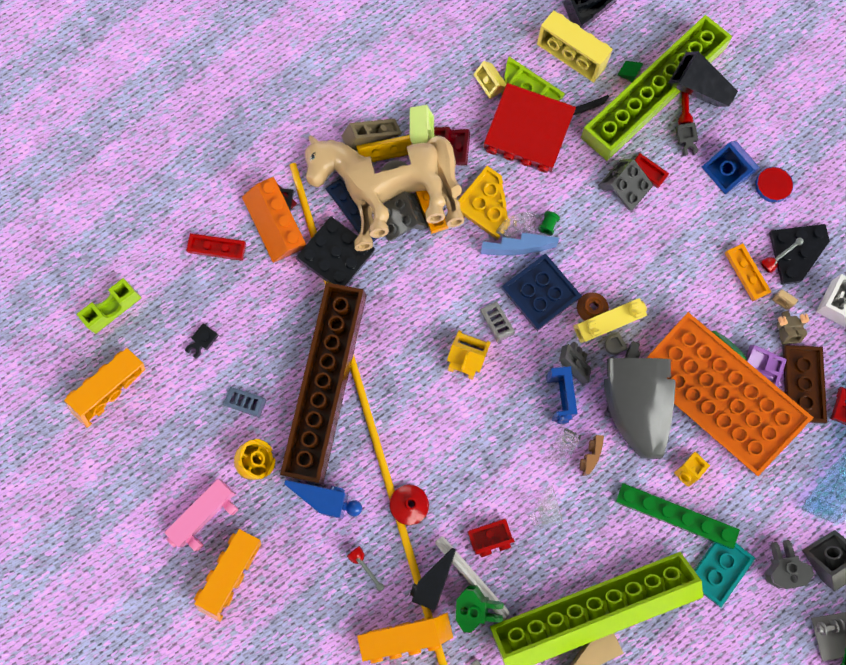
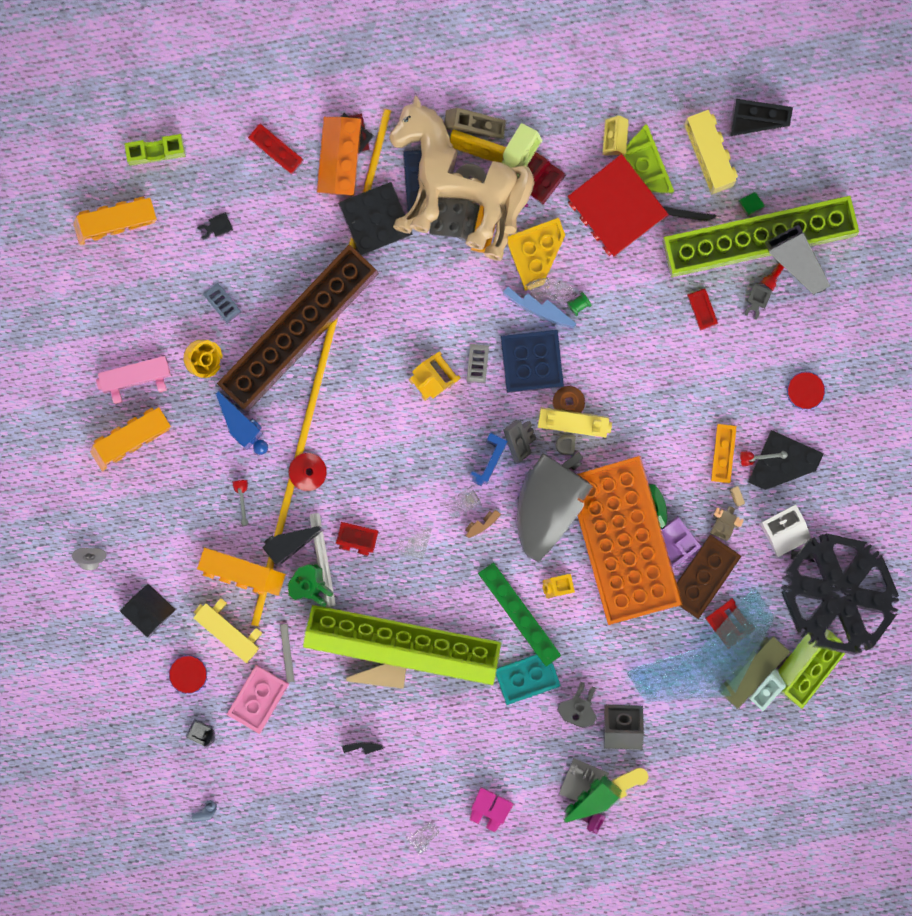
camera: 30 degrees right, 10 degrees up
(627, 182) = (673, 310): dark grey bracket -> none
(730, 166) = (776, 351): blue slope -> none

